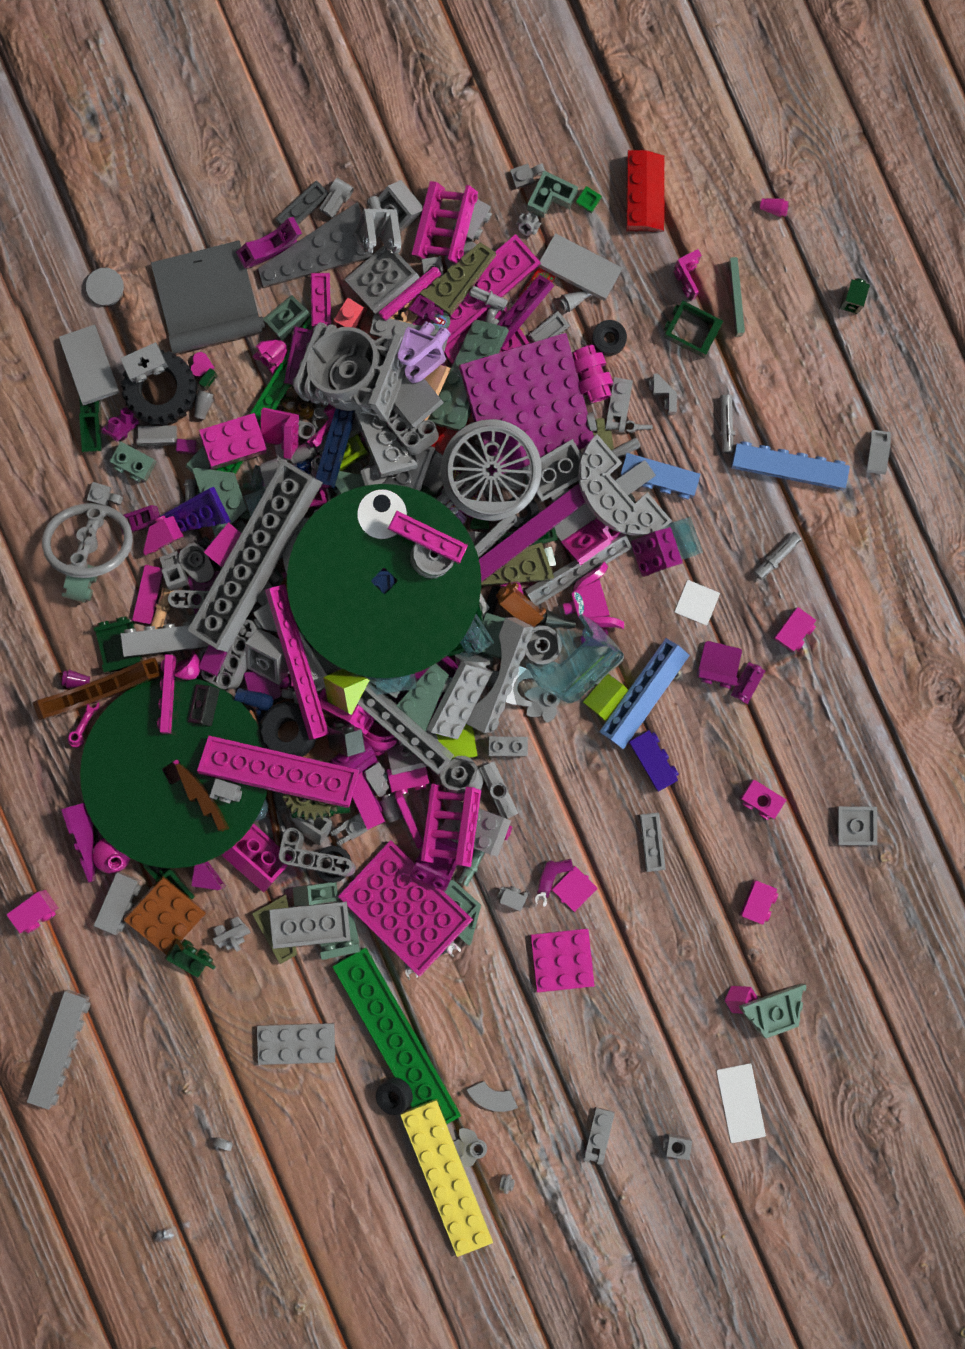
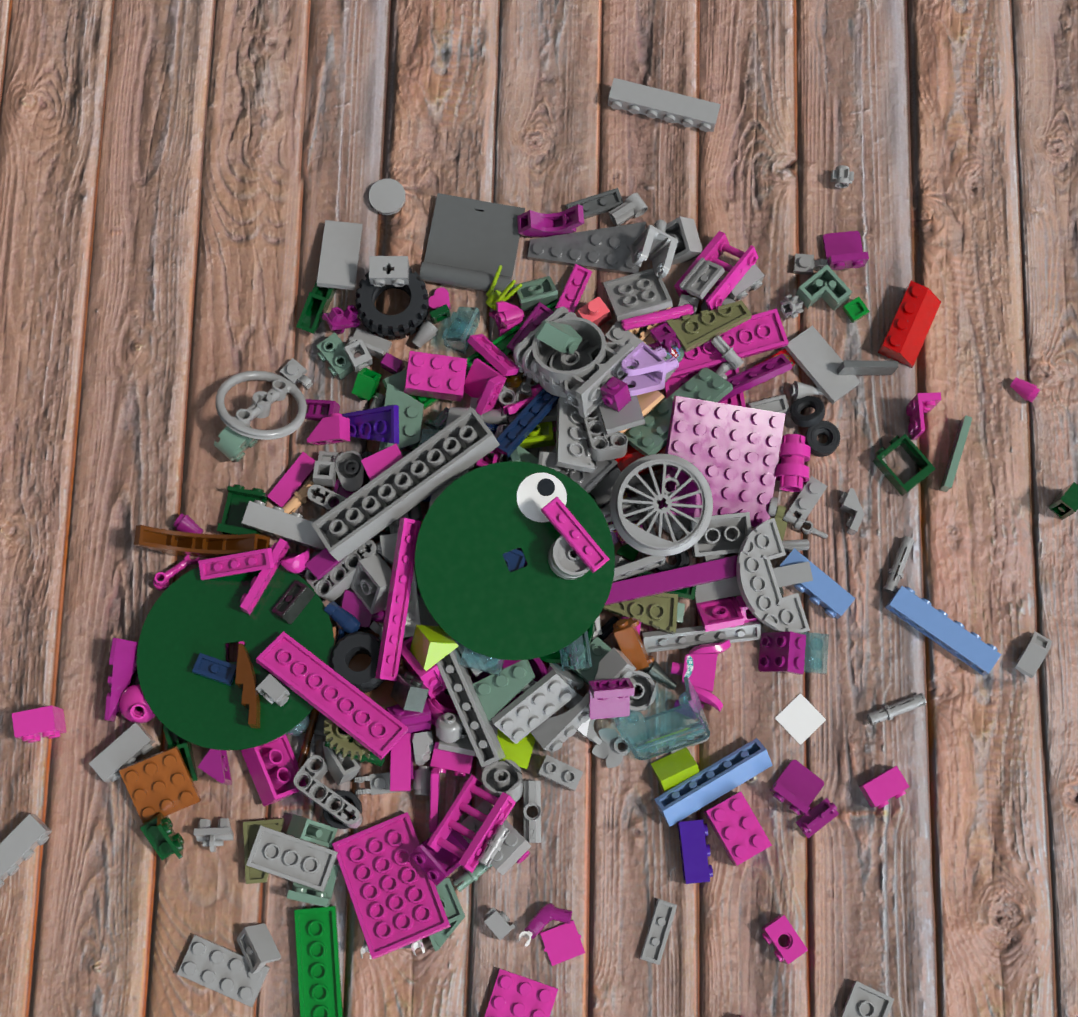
camera: 20 degrees right, 10 degrees down
(137, 695) = (236, 564): none -> dark pink plate
(161, 454) = (358, 347): none -> light grey brick
(164, 795) = (215, 669): none -> dark blue plate
(172, 476) = (366, 384): none -> green brick
(234, 384) = (463, 325): none -> clear light blue slope
(253, 339) = (497, 296): none -> lime plant
(276, 397) = (493, 355): none -> dark pink plate
(316, 1011) = (257, 946): none -> light grey panel
(323, 77) = (663, 105): none -> light grey brick
(329, 355) = (559, 336): none -> sand green slope
(393, 752) = (449, 728): none -> light grey head
(405, 387) = (615, 394): none -> magenta brick
(434, 236) = (702, 278): none -> light grey plate
(478, 835) = (493, 845): none -> light grey pin
(521, 74) = (842, 176): none -> light grey gear
(522, 664) = (610, 698): none -> bracket
(554, 146) = (844, 250): none -> magenta bracket
(592, 325) = (807, 420): none -> black tyre
(622, 252) = (859, 367): none -> dark grey tile
(682, 723) = (737, 828): none -> dark pink brick

